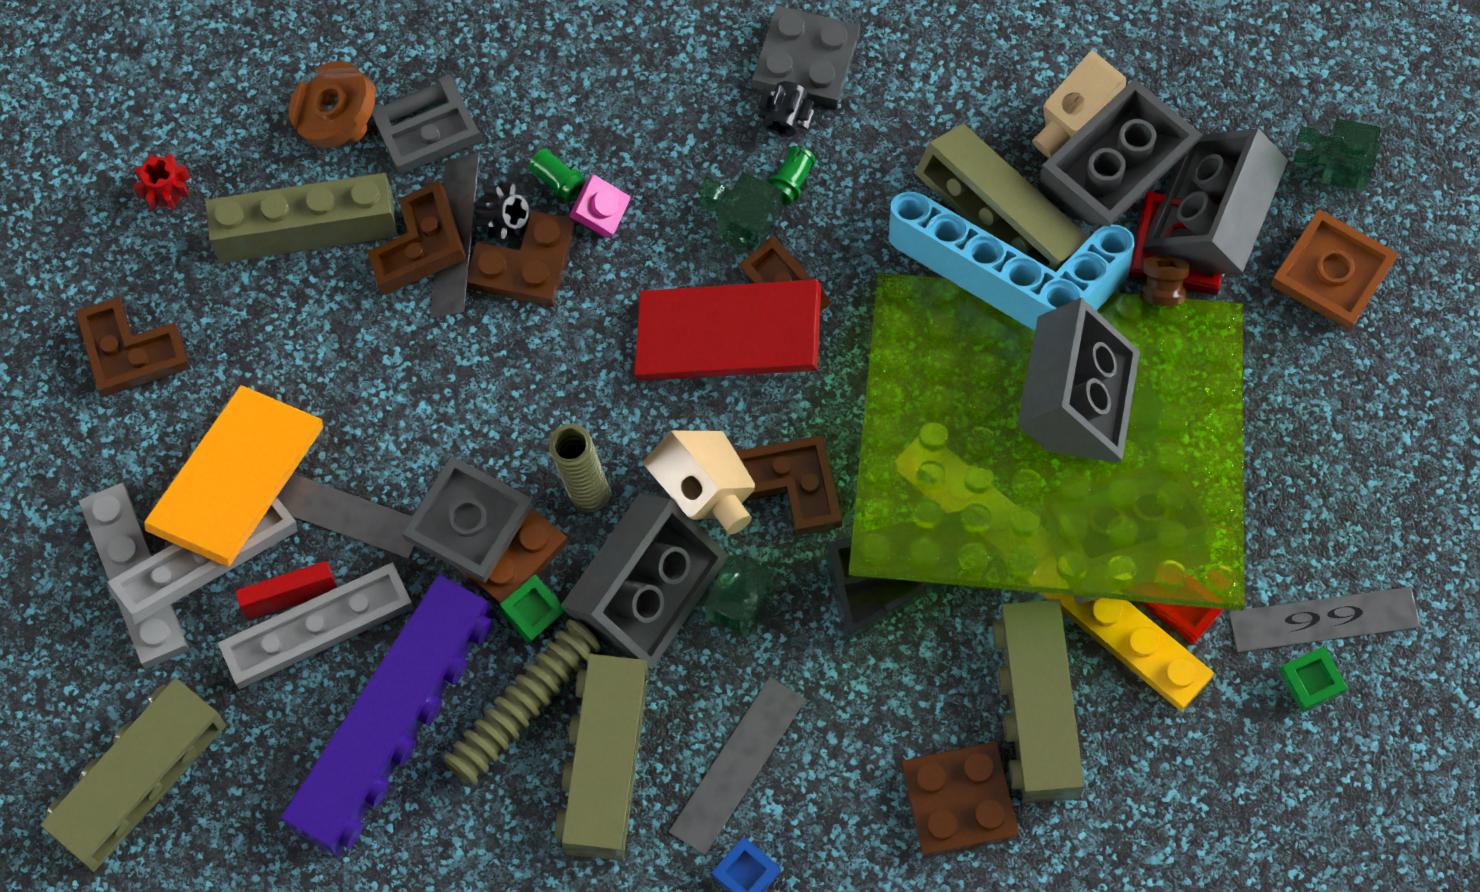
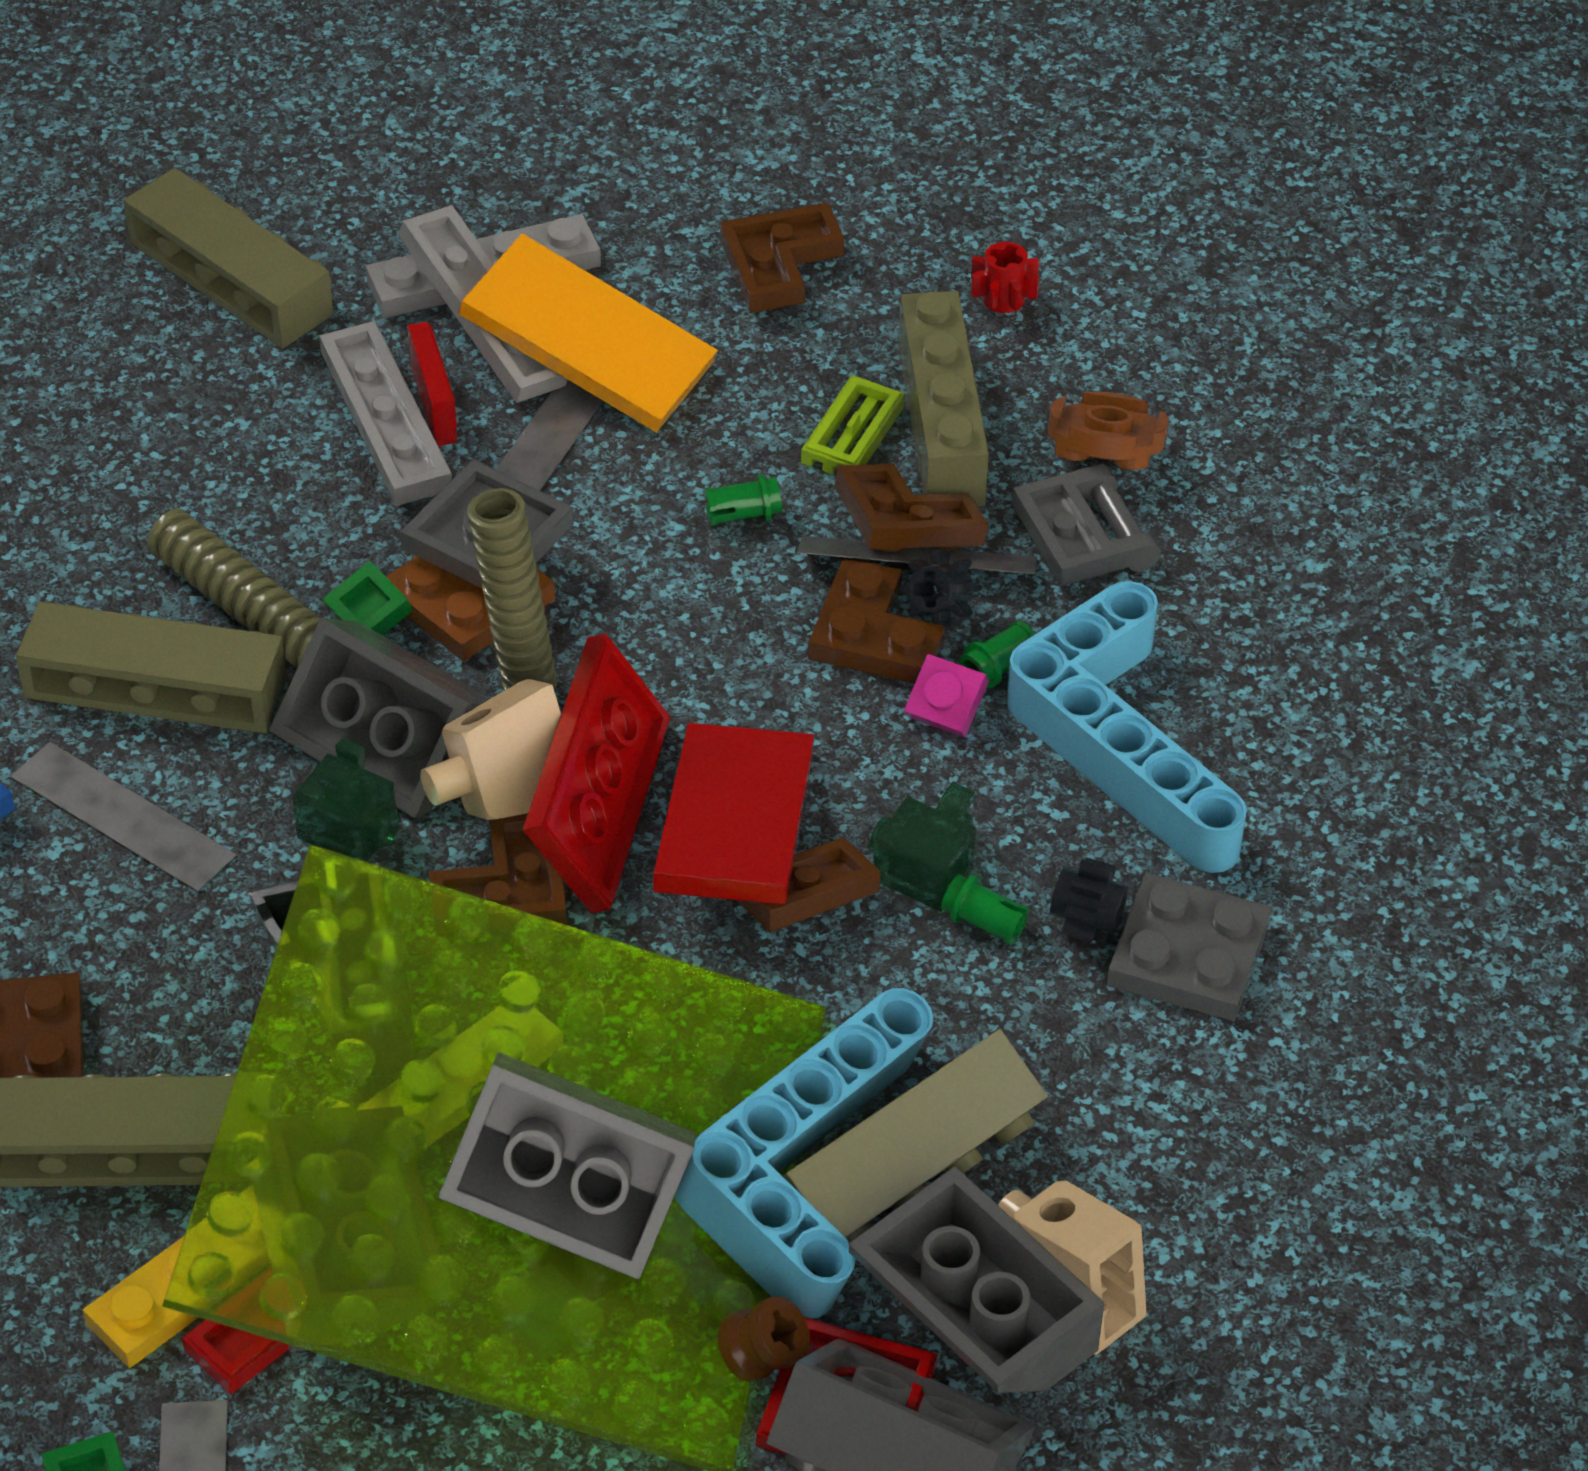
camera: 90 degrees right, 20 degrees down
(352, 301) = (815, 447): none -> lime tile
(388, 716) = (251, 468): dark purple brick -> none
(404, 344) = (743, 501): none -> green pin
(625, 99) = (1063, 698): none -> medium azure beam
(707, 417) = (597, 774): none -> red tile

